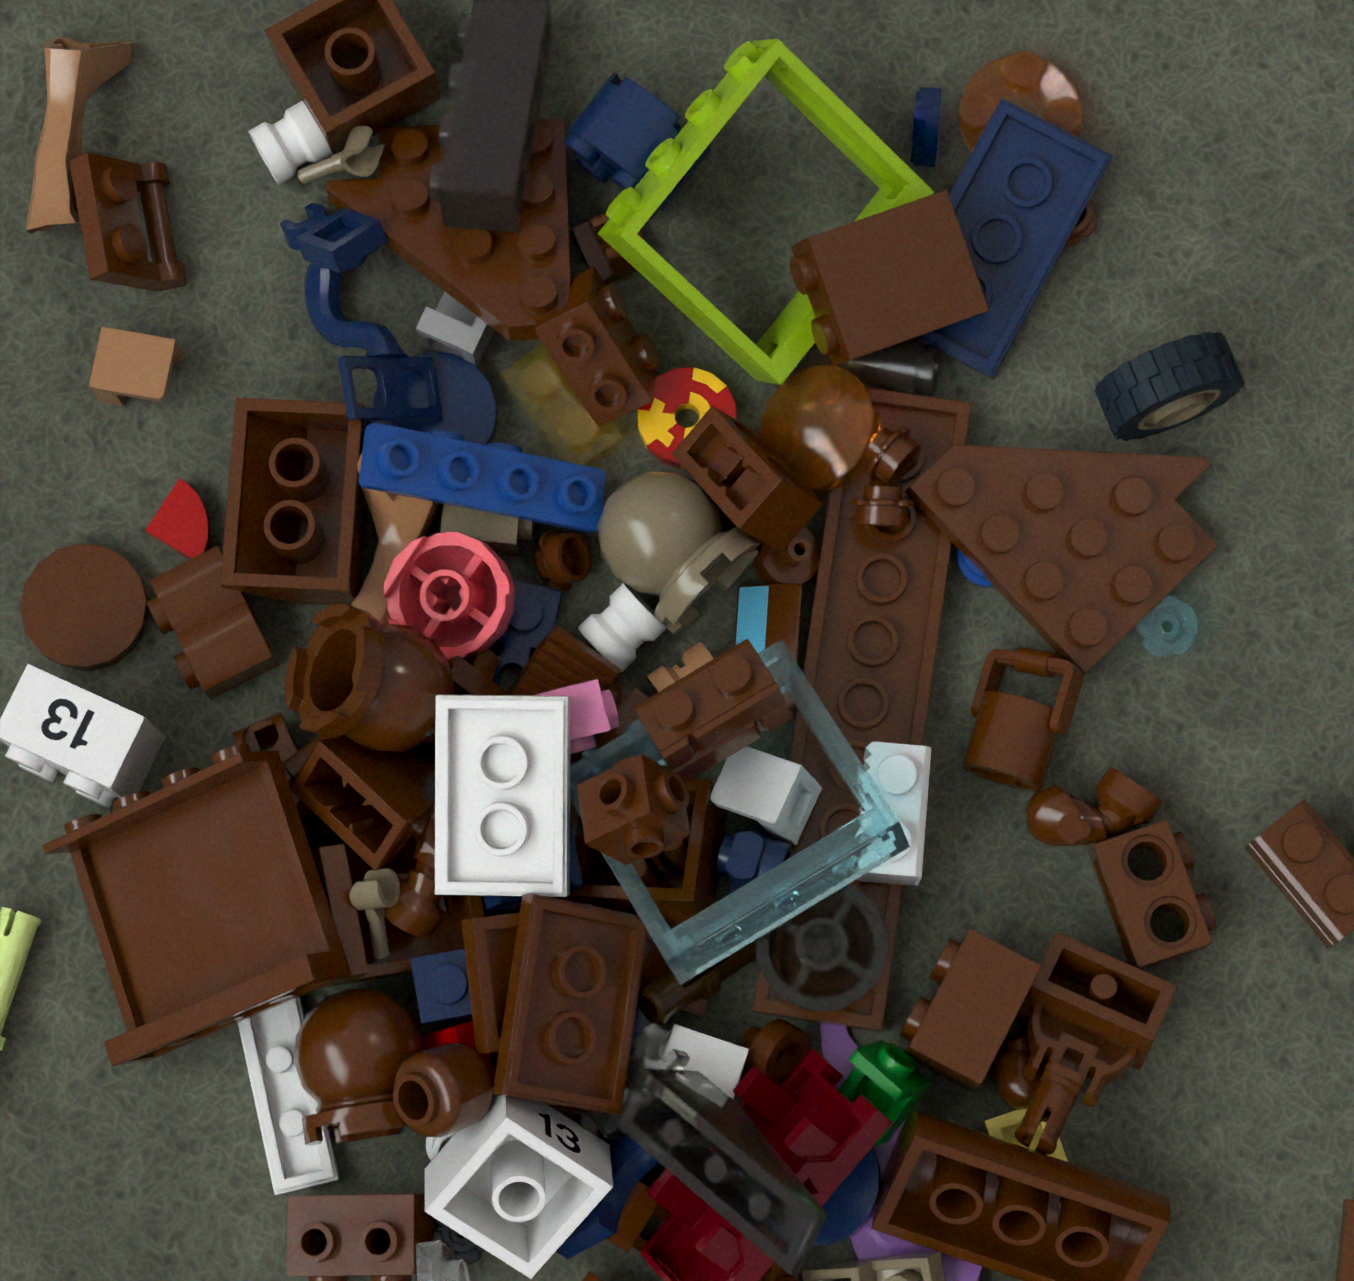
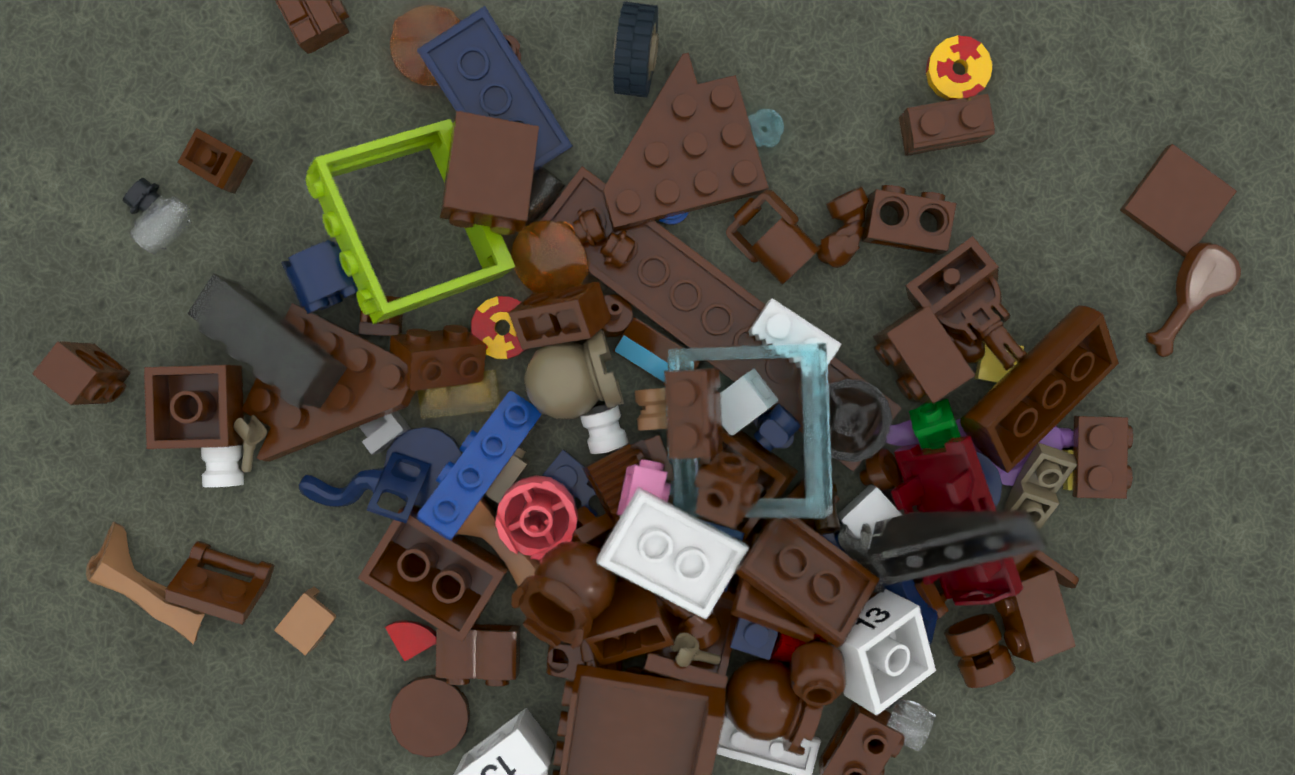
camera: 70 degrees left, 10 degrees up
(337, 240) = (294, 472): dark blue plate -> none
(562, 558) = (546, 440): reddish brown plate -> none
(925, 113) = (408, 102): clear blue tile -> none

